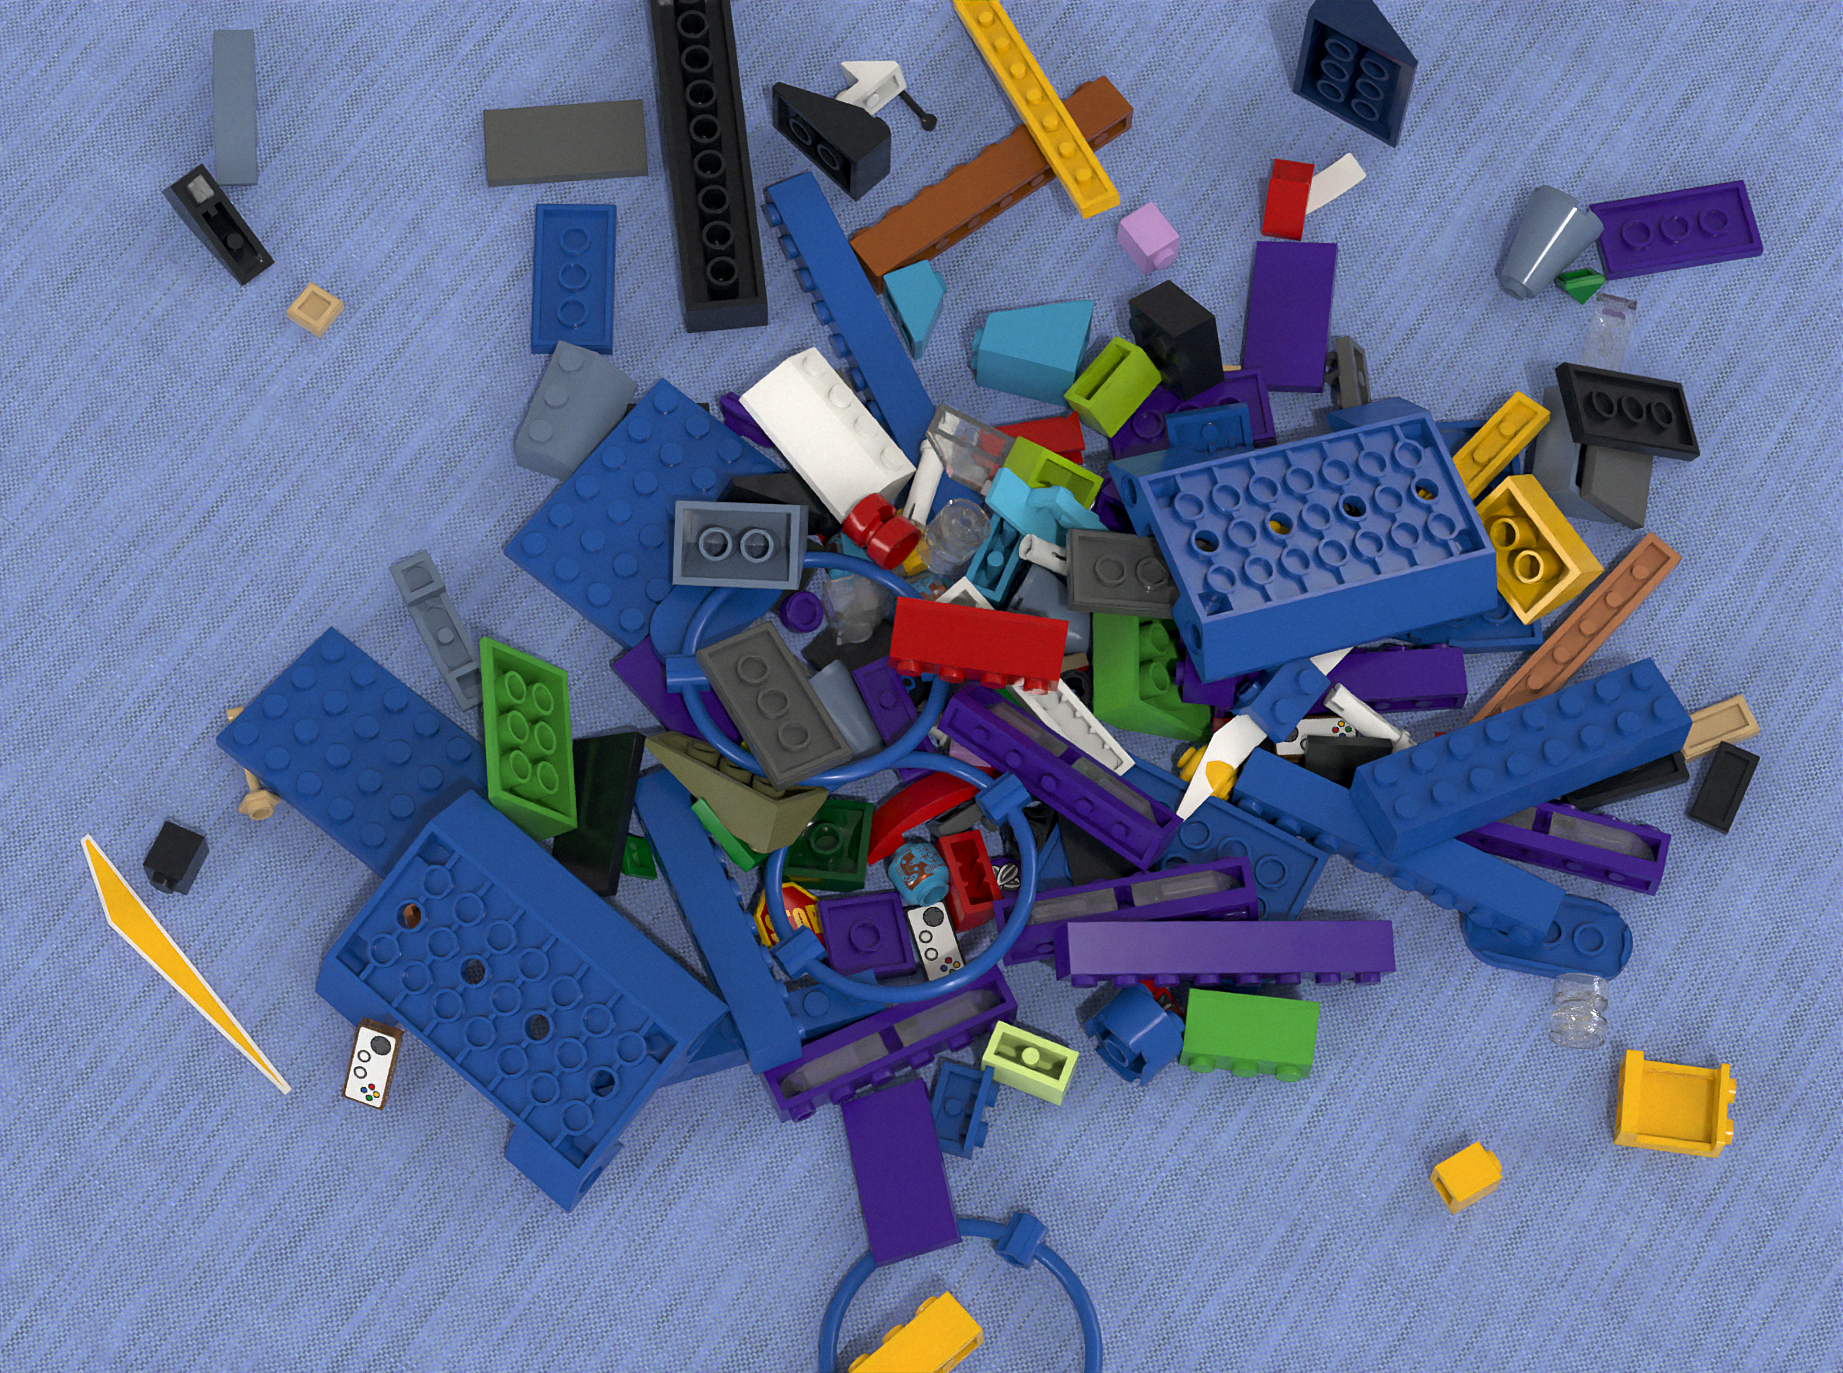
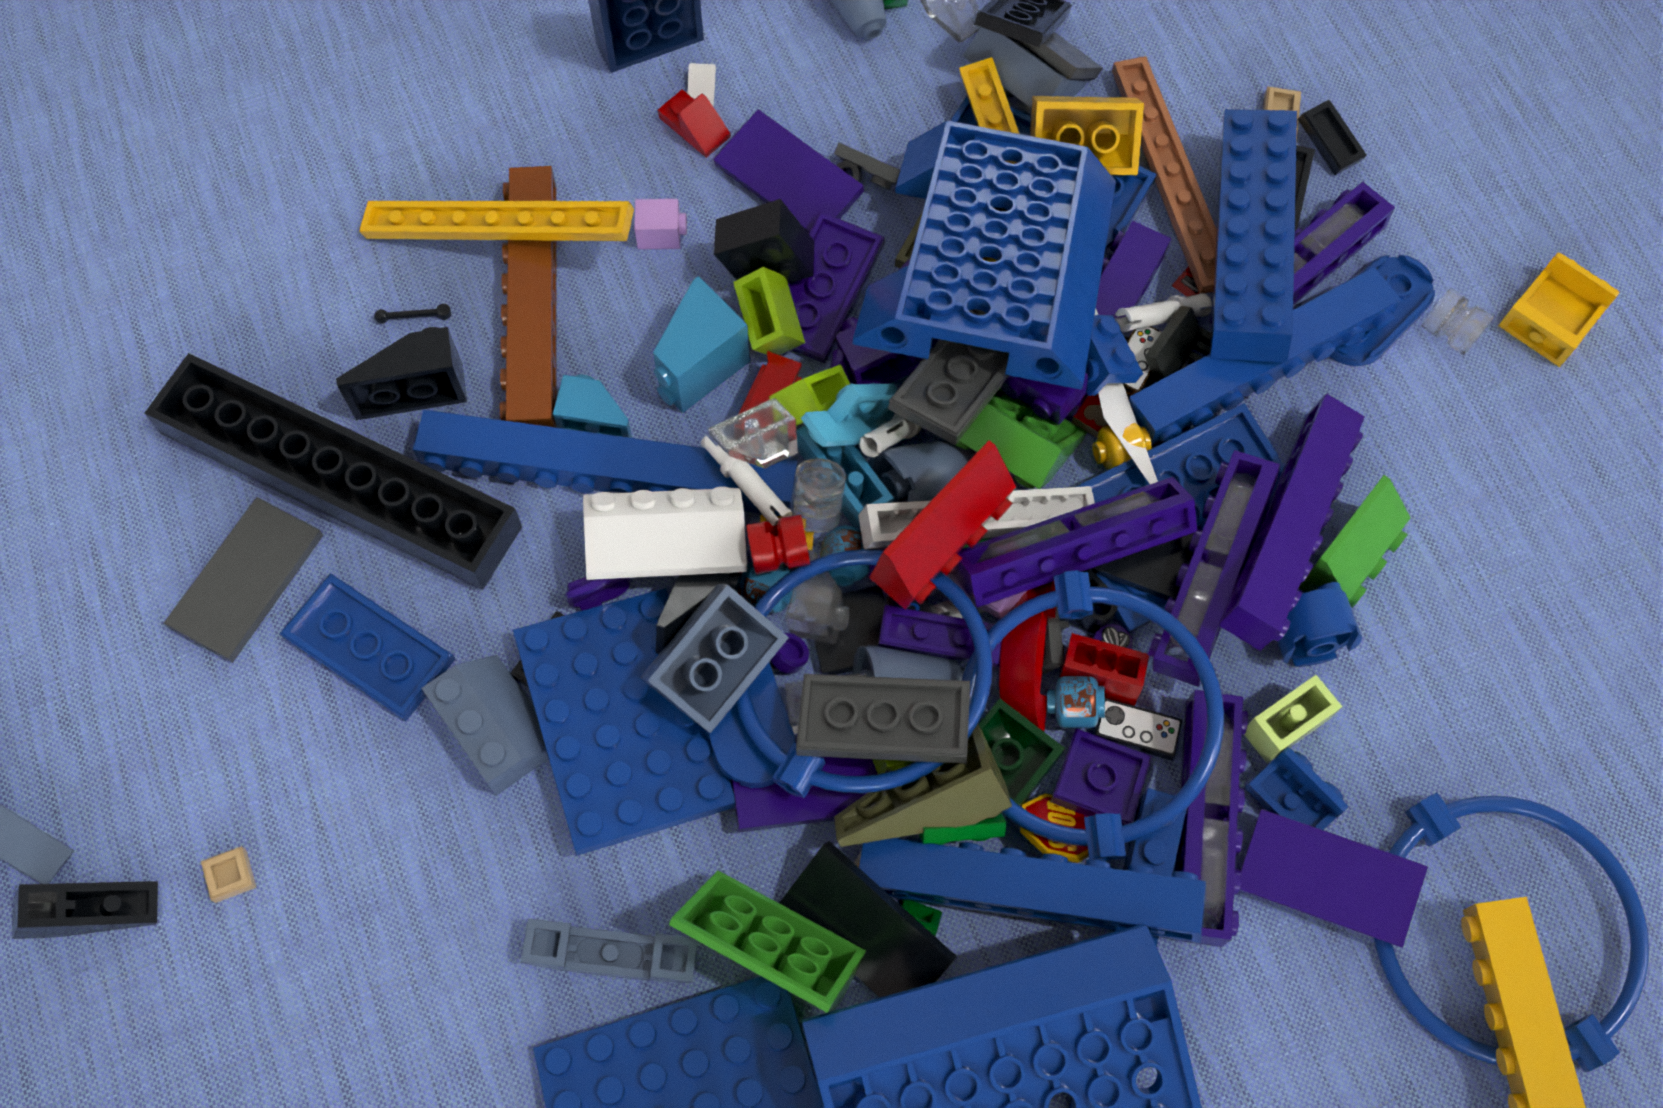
camera: 55 degrees left, 0 degrees up
(871, 83) = (381, 324): white slope -> none
(1212, 430) = (853, 270): blue bracket -> none
(1467, 1177) = (1547, 472): yellow brick -> none

